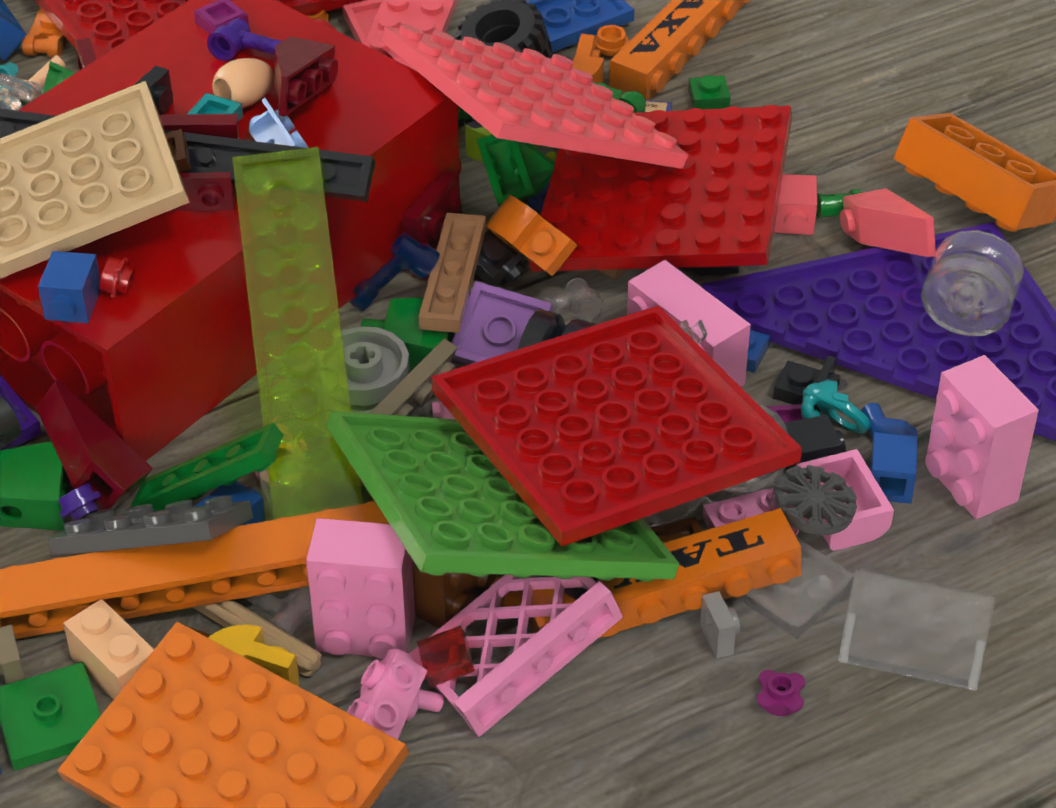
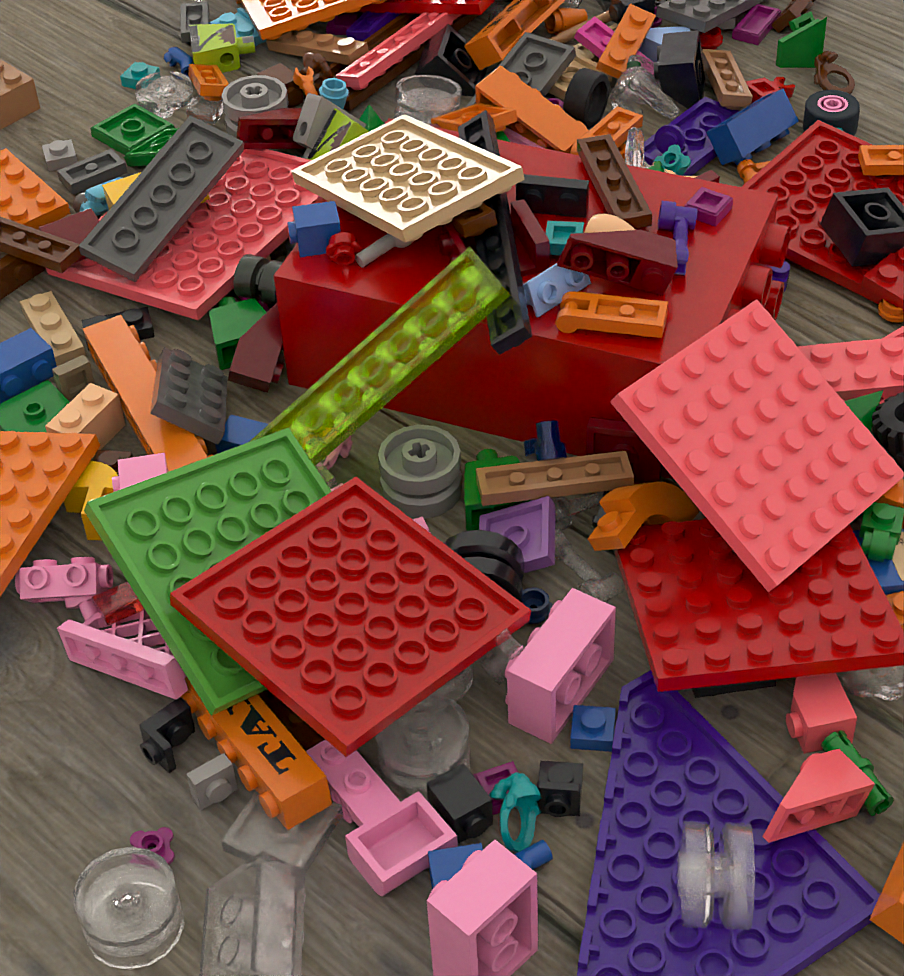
camera: 75 degrees right, 0 degrees up
(79, 502) = (216, 355): dark purple plate -> none
(129, 249) = (379, 248): none -> light grey bar
(133, 61) = (613, 180): none -> reddish brown plate
(211, 469) = (257, 406): green plate -> none
(355, 113) = (611, 314): none -> orange plate
(417, 385) = (411, 499): dark tan plate -> none
(639, 656) = (164, 731): none -> black bracket
(815, 500) = (359, 807): dark grey wheel -> none
(866, 705) = (129, 907): none -> clear wheel

